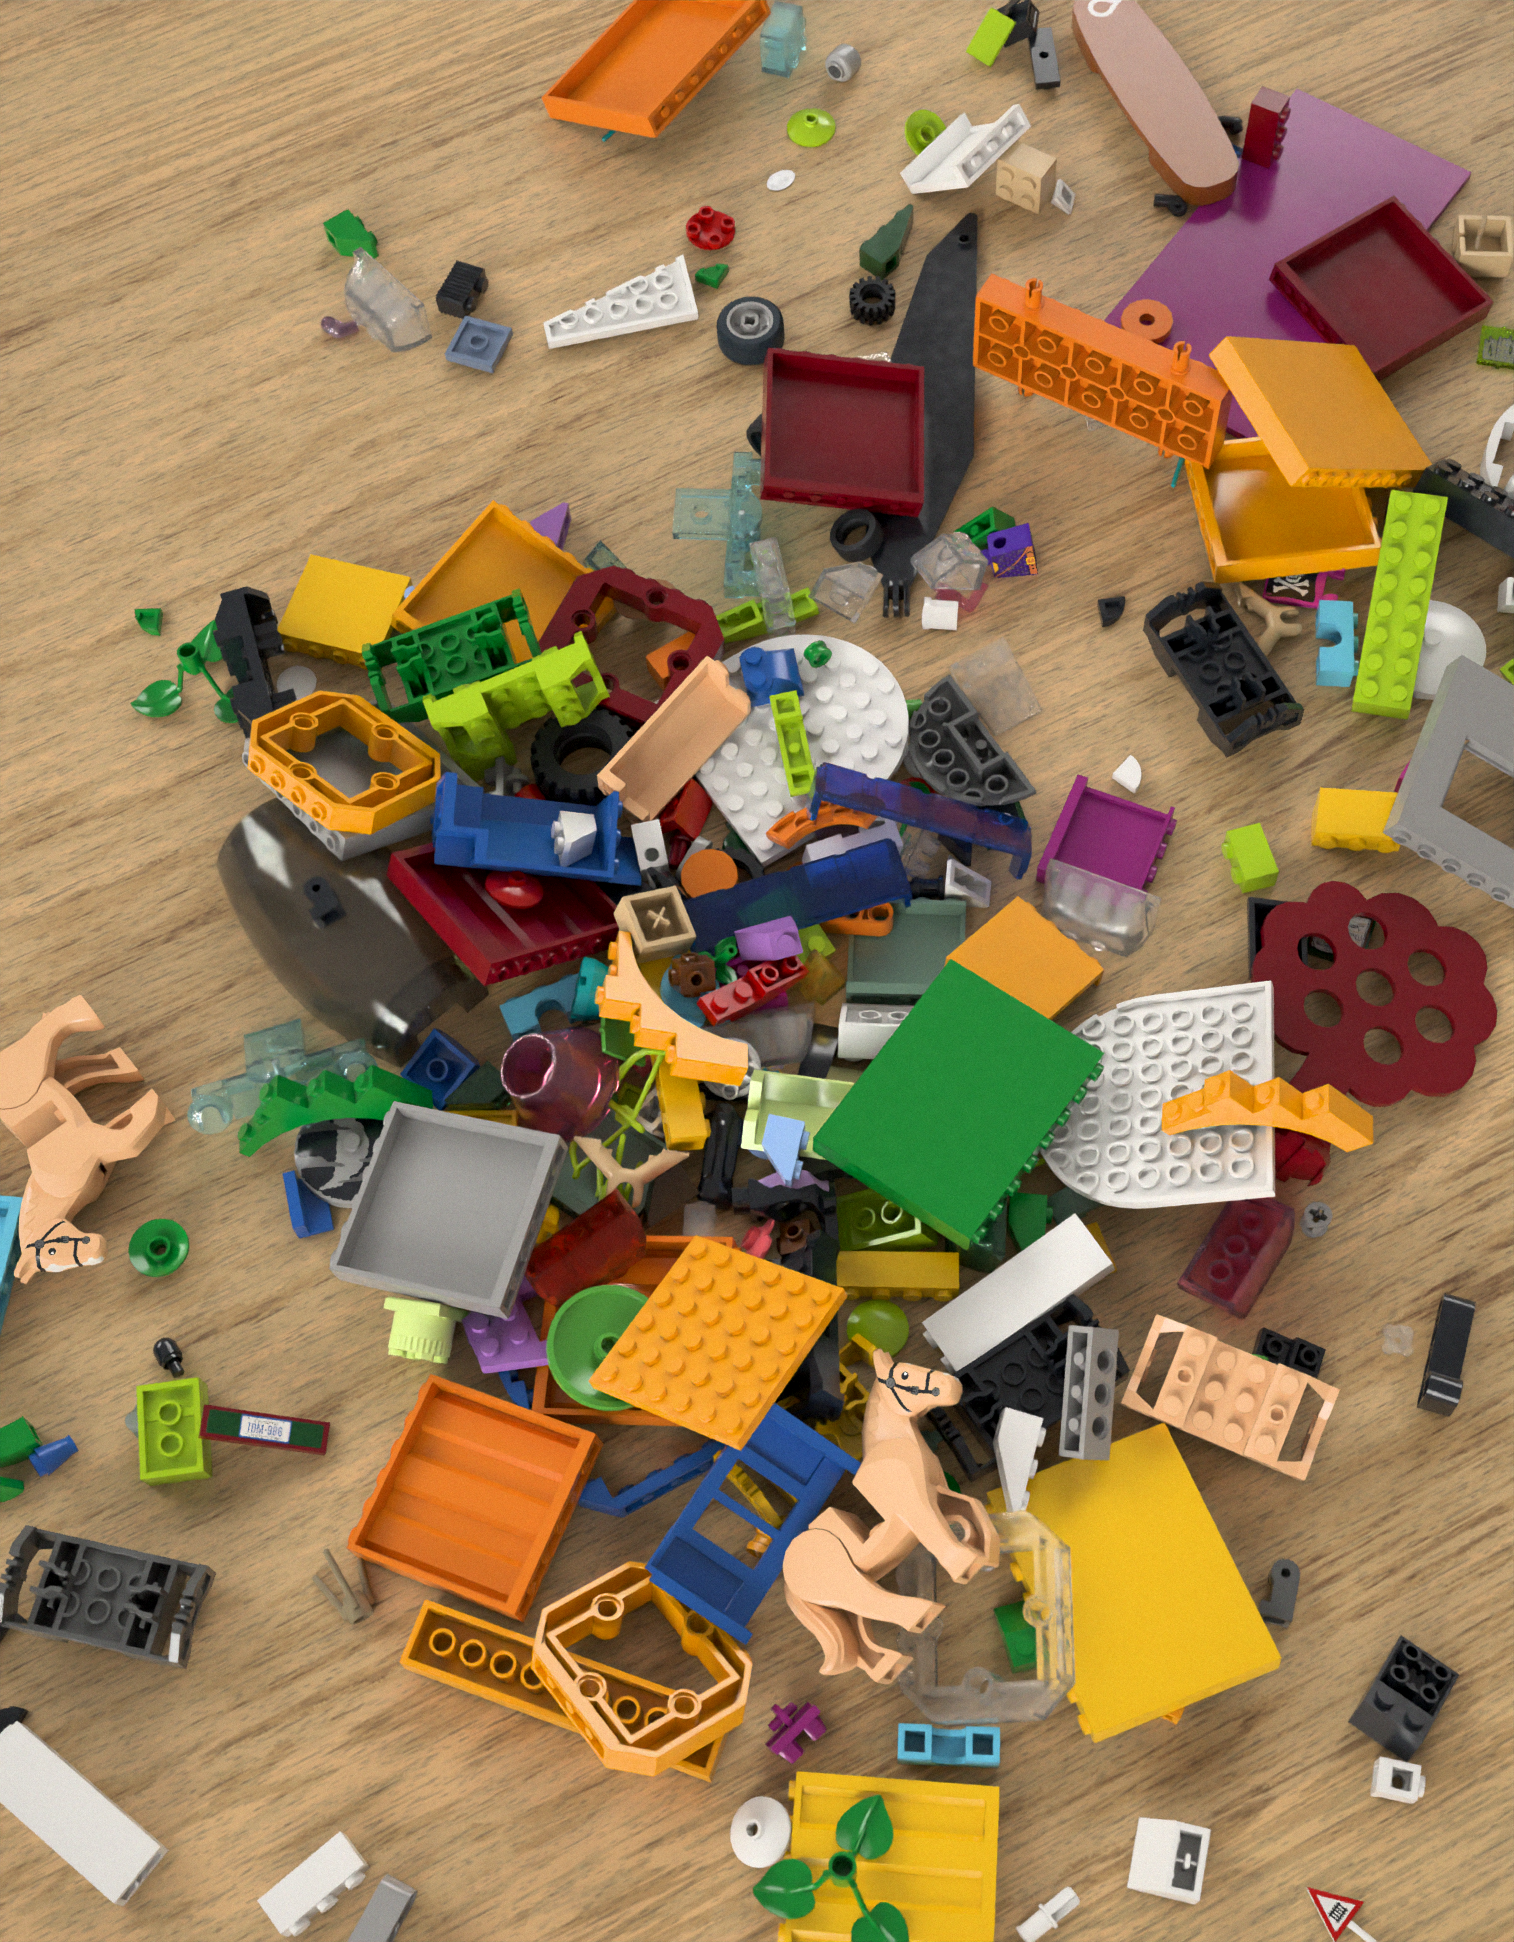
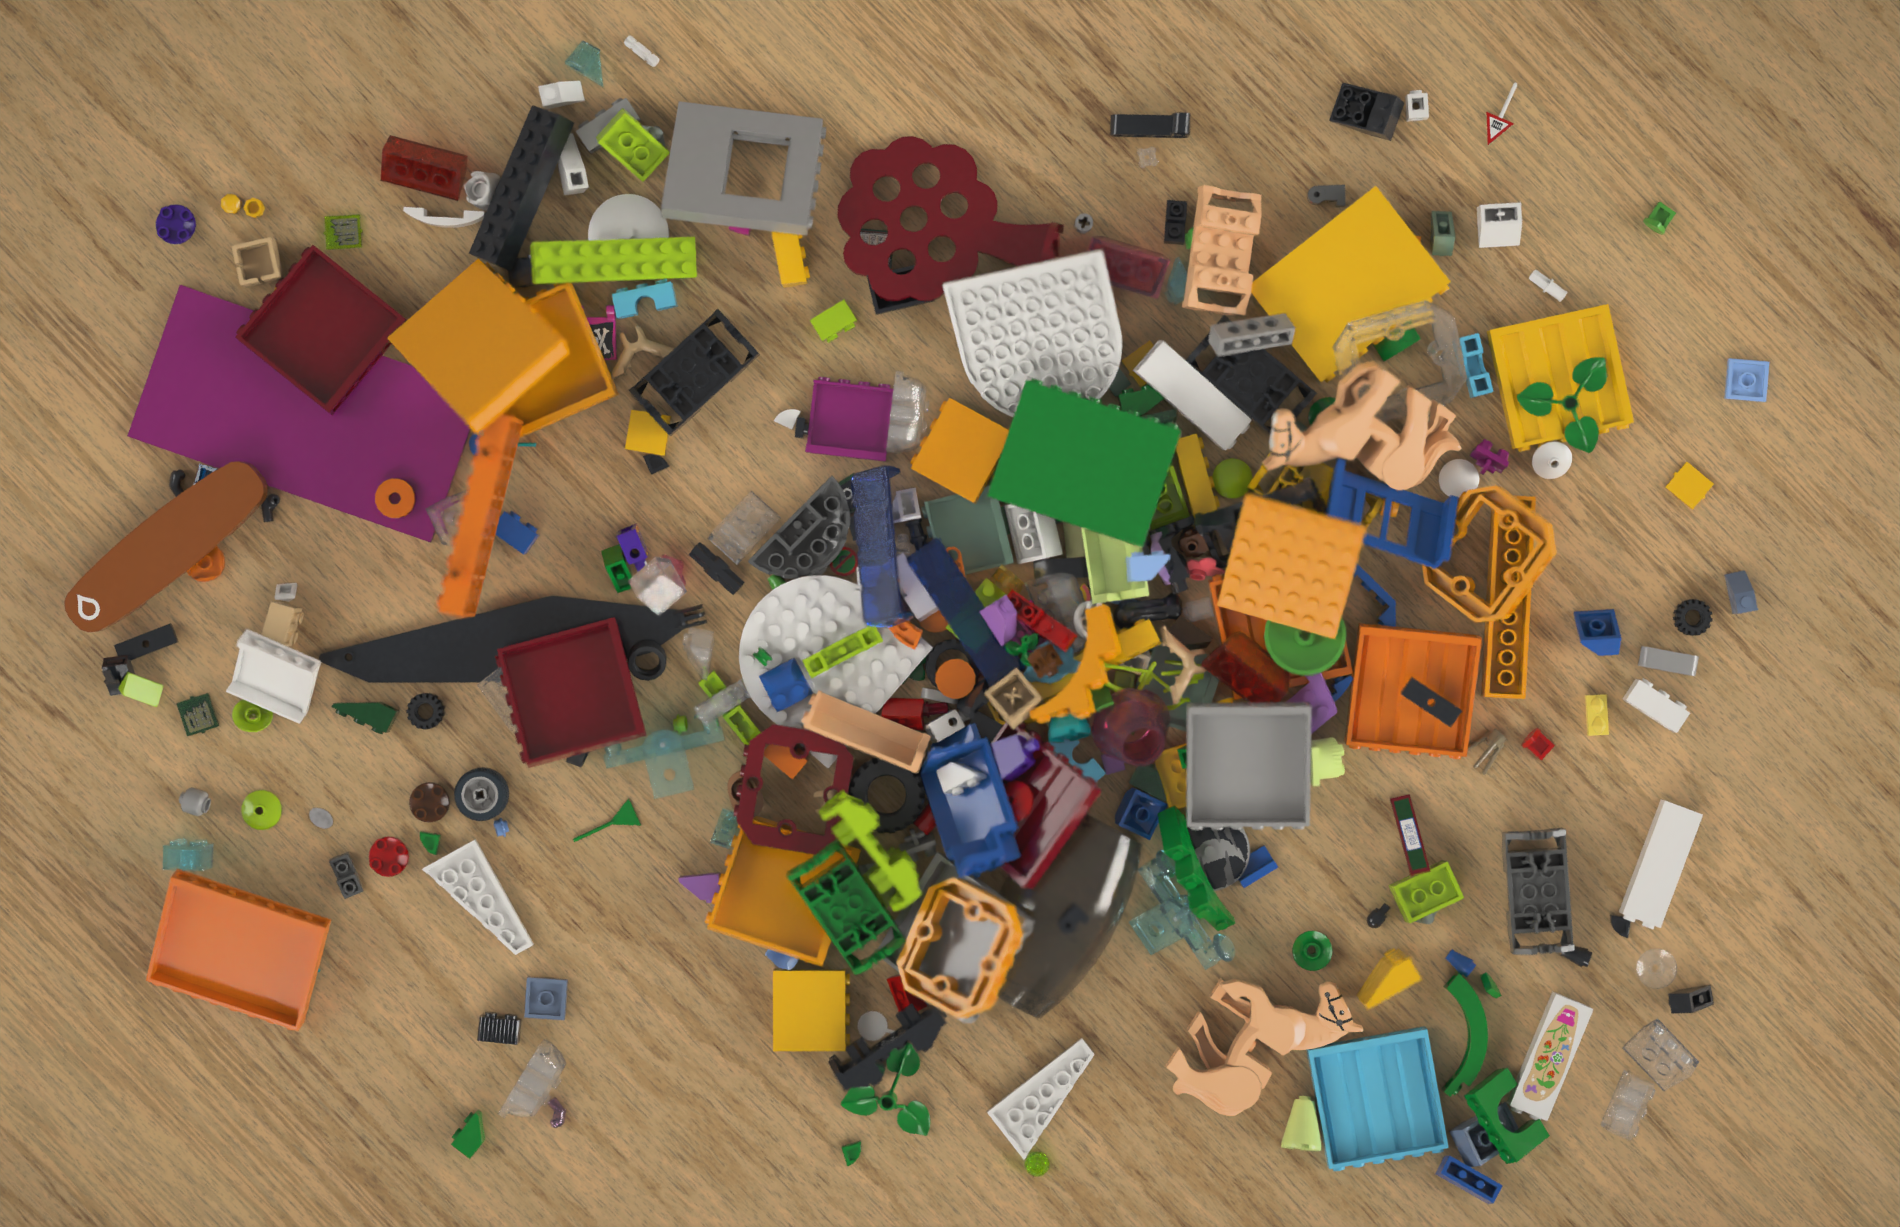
camera: 110 degrees left, 25 degrees up
(38, 831) = (1032, 1159): none -> clear neon green plate
(66, 1330) = (1390, 976): none -> yellow slope
(114, 841) = (1034, 1103): none -> white wing
(326, 1674) = (1537, 743): none -> red tile
(336, 1783) = (1597, 714): none -> light yellow tile
(431, 1522) = (1440, 708): none -> black tile
(464, 1822) = (1599, 631): none -> blue slope
(575, 901) = (1013, 755): none -> torso
(668, 477) = (624, 816): none -> green piece
(699, 188) = (346, 875): none -> dark grey slope
(703, 344) = (501, 827): none -> medium blue plate
(760, 280) = (429, 802): none -> reddish brown dish
(777, 1672) = (1458, 477): none -> white dish
(939, 614) = (696, 583): white tile -> none
(944, 92) = (197, 714): none -> piece
(951, 642) = (716, 568): none -> black piece
(1014, 1450) = (1292, 371): white slope -> none
(1065, 437) = (515, 532): none -> blue brick
(1111, 782) = (801, 428): none -> black plate
(1119, 135) = (209, 566): none -> orange tile
(1143, 599) = (646, 434): none -> yellow tile
(1177, 1760) = (1442, 233): none -> sand green slope
(1196, 1319) = (1176, 283): none -> clear light blue slope
(1266, 127) = (196, 447): dark red brick -> none
(1274, 1103) = (1044, 265): light orange arch -> none

